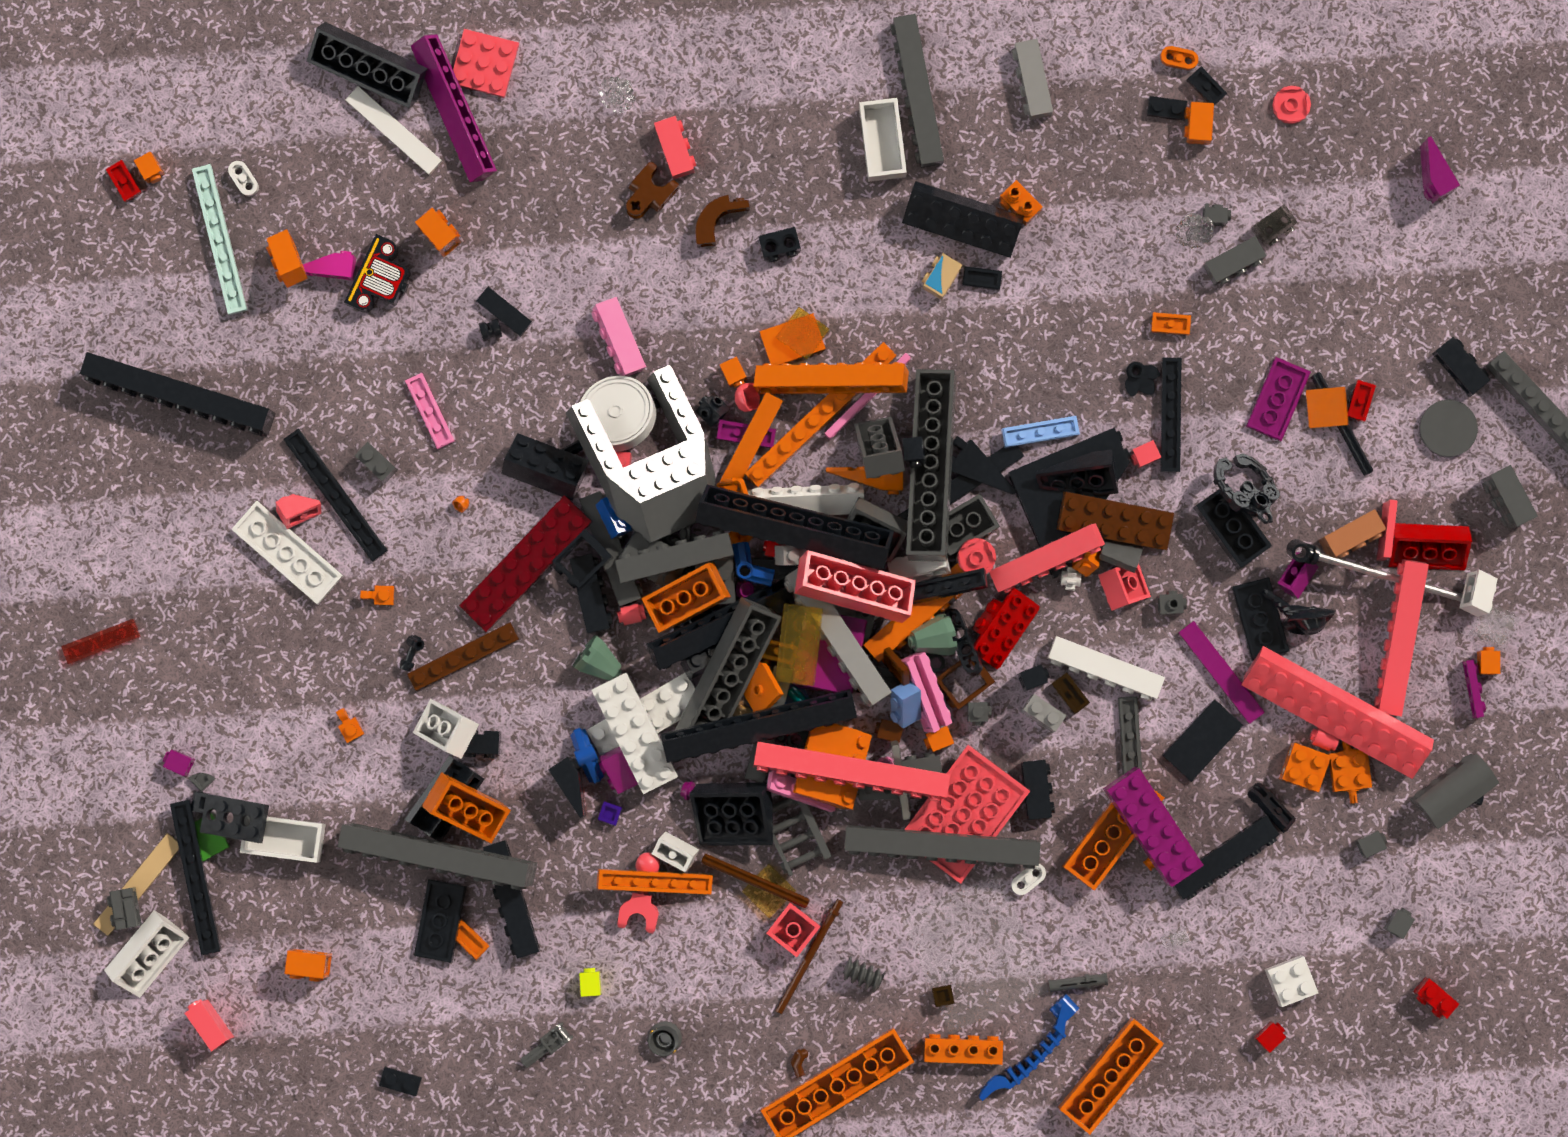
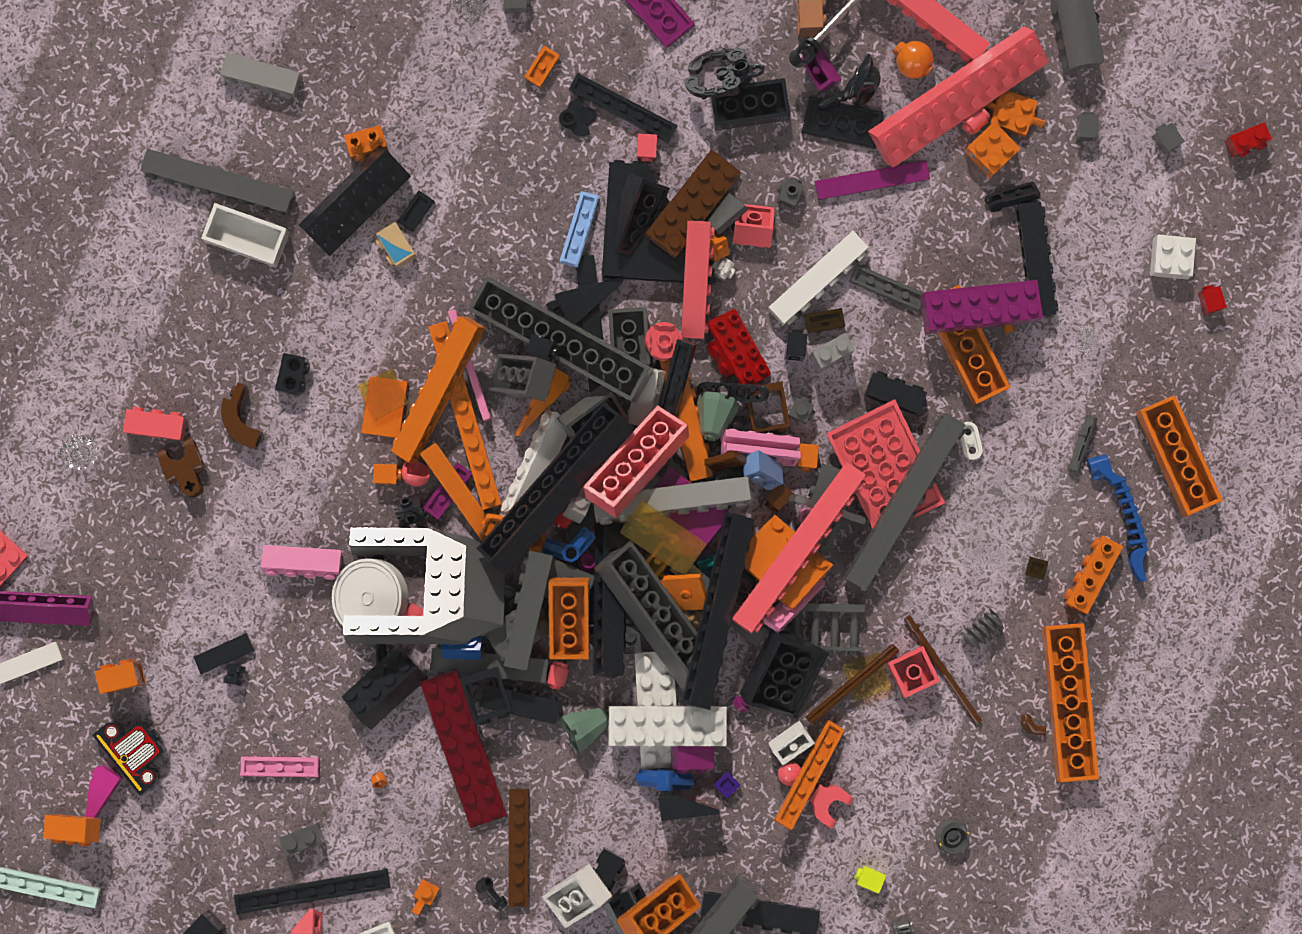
camera: 70 degrees left, 0 degrees up
(1202, 740) = (923, 226): black tile -> none
(1351, 654) = (914, 59): none -> orange brick

